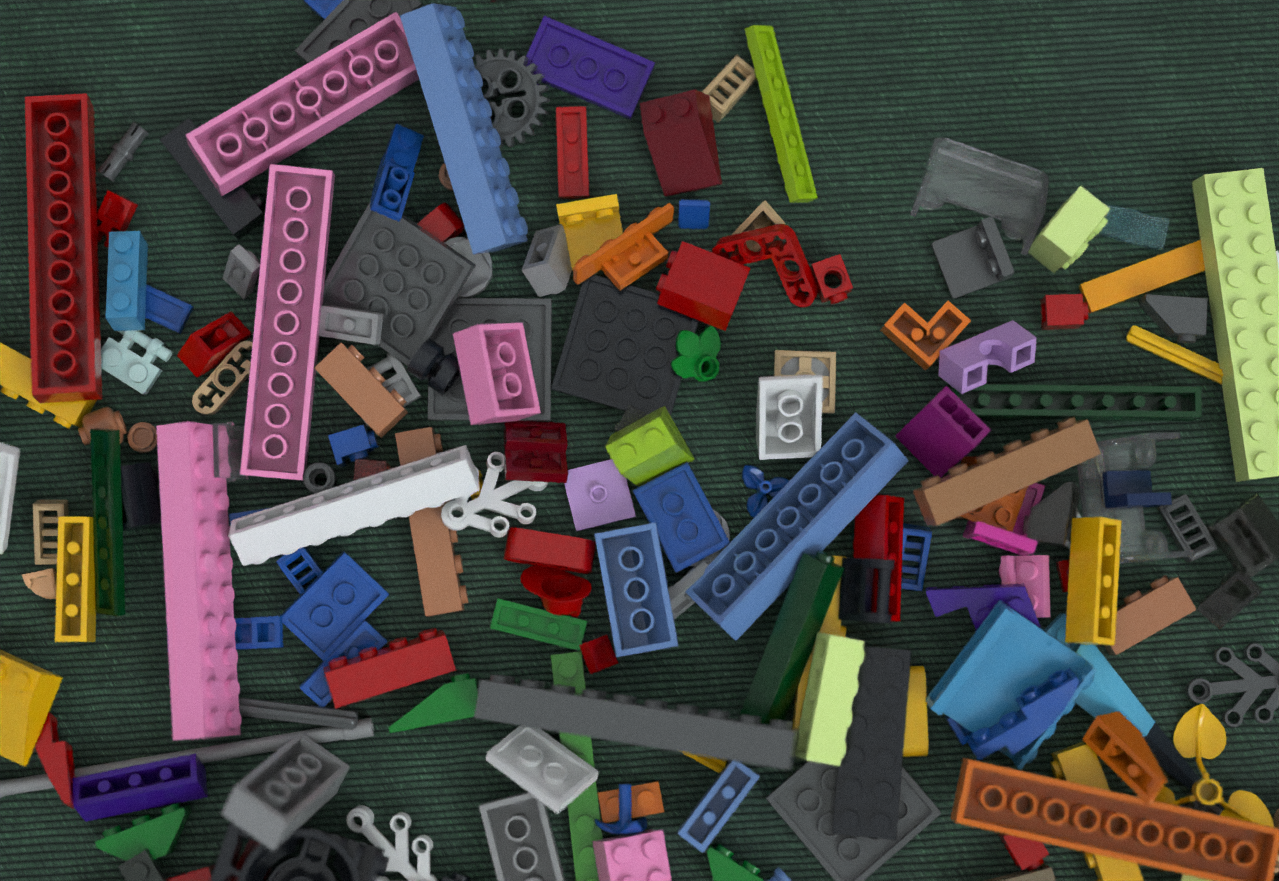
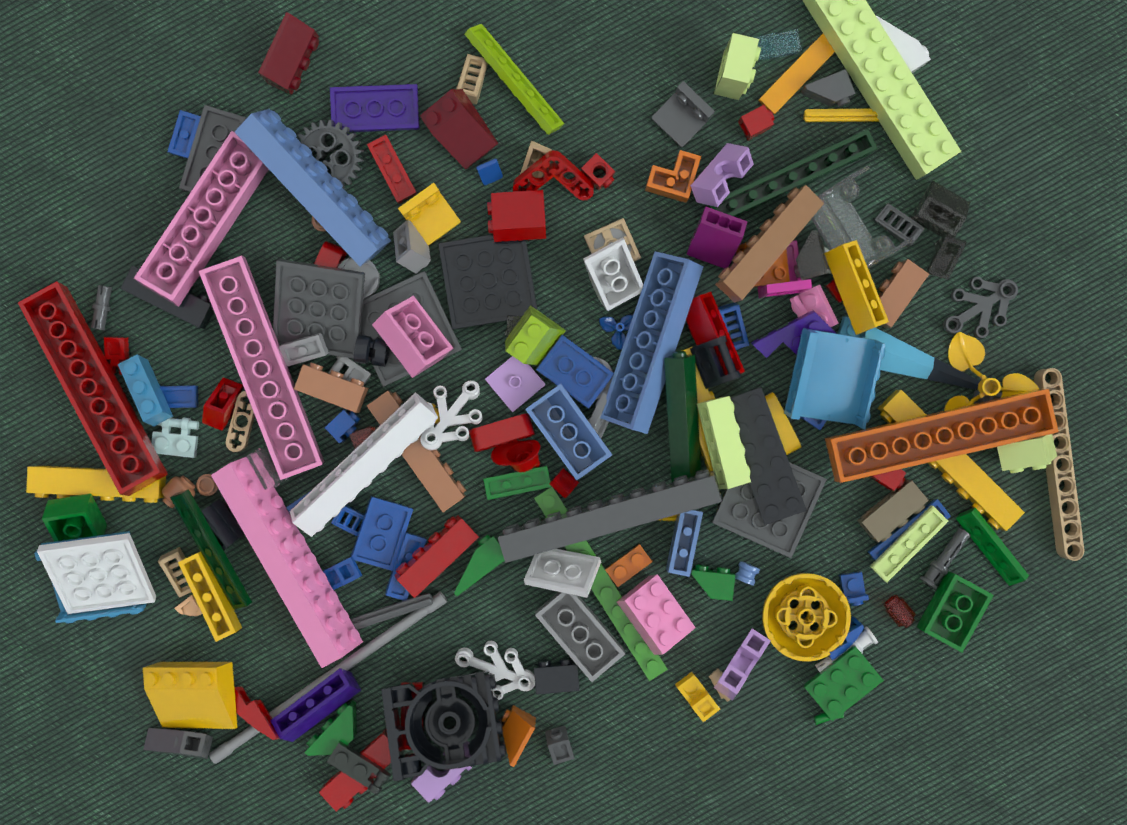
camera: 25 degrees left, 5 degrees up
(241, 271) = (216, 348): light grey plate -> none
(285, 790) = (408, 666): light grey brick -> none
(313, 471) = (326, 457): dark grey brick -> none
(396, 173) = (284, 237): blue slope -> none
(535, 451) = (462, 374): dark red slope -> none
(624, 825) = (632, 582): blue plant -> none
(630, 253) = (460, 218): orange bracket -> none
(694, 351) = (533, 260): green plate -> none
(984, 185) = (669, 63): clear windscreen -> none
(1038, 711) = (859, 387): blue slope -> none
(1126, 753) = (928, 387): orange slope -> none
(1132, 490) = (853, 217): dark blue panel -> none

